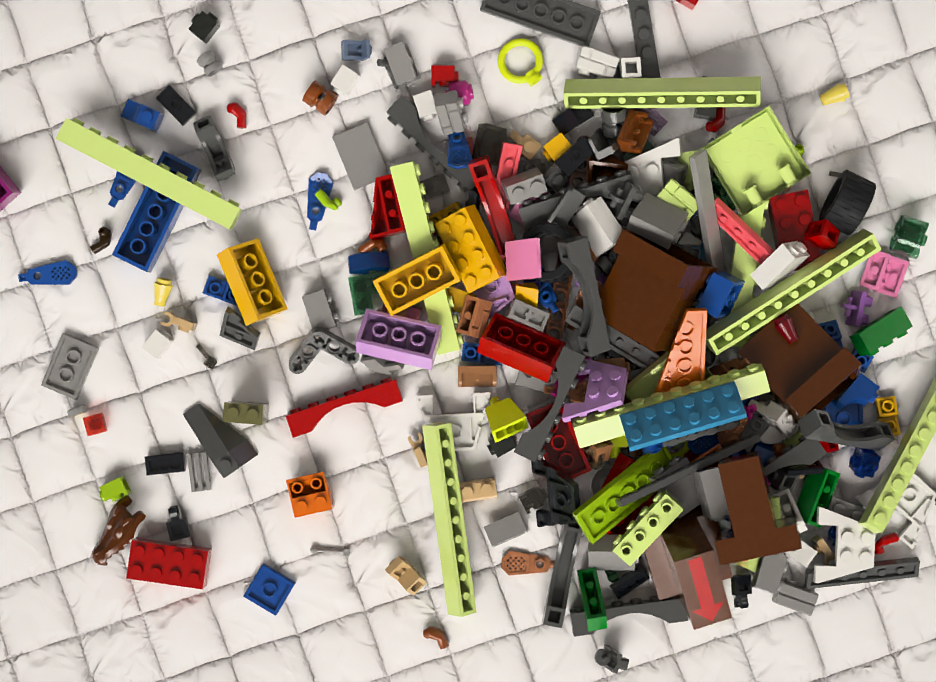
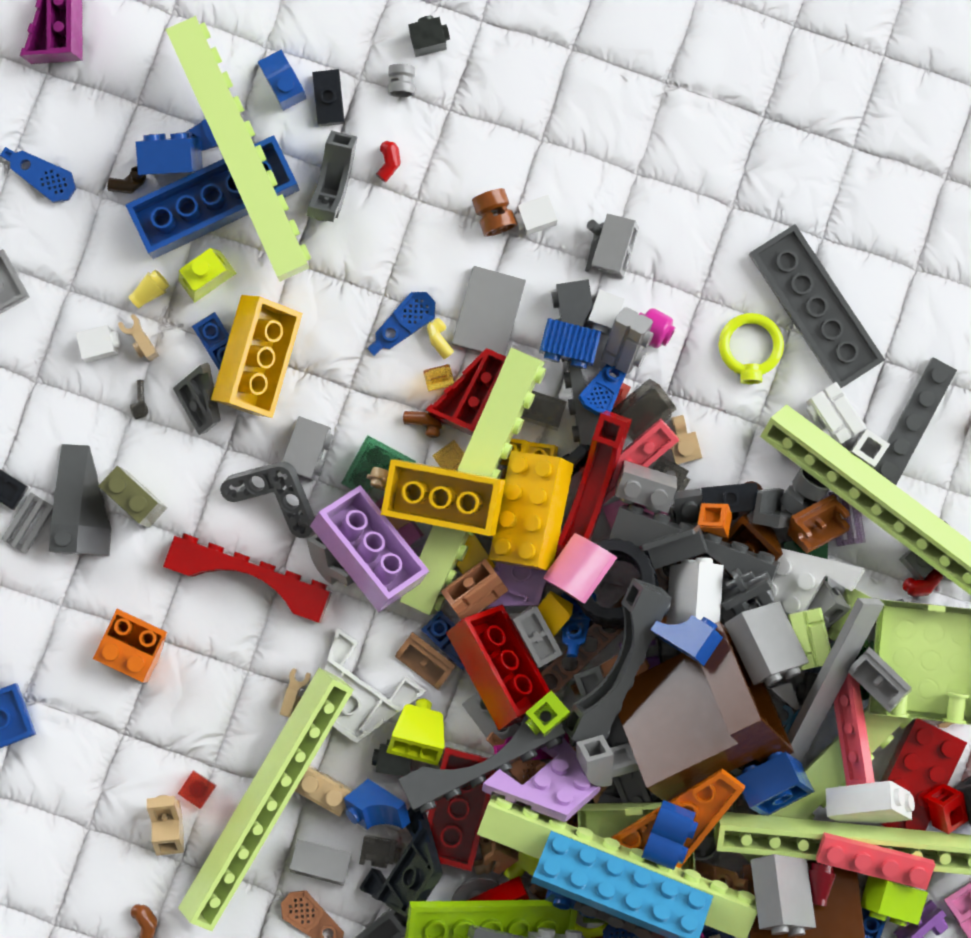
camera: 40 degrees right, 5 degrees down
(113, 208) = (170, 155): none -> blue brick
(186, 258) = (205, 273): none -> neon yellow torso
(326, 201) = (410, 332): lime arm -> none
(344, 194) = (437, 340): none -> light yellow arm
(345, 552) = (118, 744): light grey hinge -> none
(356, 50) = (575, 191): sand blue bracket -> none
(361, 214) = (438, 377): none -> clear yellow tile
(364, 262) = (400, 433): blue slope -> none
(373, 296) = (378, 478): none -> tan plate
(402, 253) = (449, 456): none -> clear yellow tile
(407, 543) = (197, 789): none -> clear red plate
(420, 138) = (569, 343): none -> blue brick
(443, 75) = (652, 294): red brick -> none
(511, 476) = (374, 806): none -> blue arch
(556, 148) = (715, 472): yellow brick -> none
(567, 346) = (551, 704): none -> lime brick
(571, 119) = (758, 454): black slope -> none
(576, 174) = (715, 519): none -> orange slope
(616, 249) = (693, 637): none -> arch
(619, 355) = (602, 762): none -> light grey brick
(685, 367) = (669, 834): none -> blue brick
(734, 192) = (879, 679): none -> light grey hinge
(771, 351) = (783, 894): none -> light grey brick
(807, 293) = (875, 861): none -> coral plate
(832, 306) = (893, 900): none -> lime brick

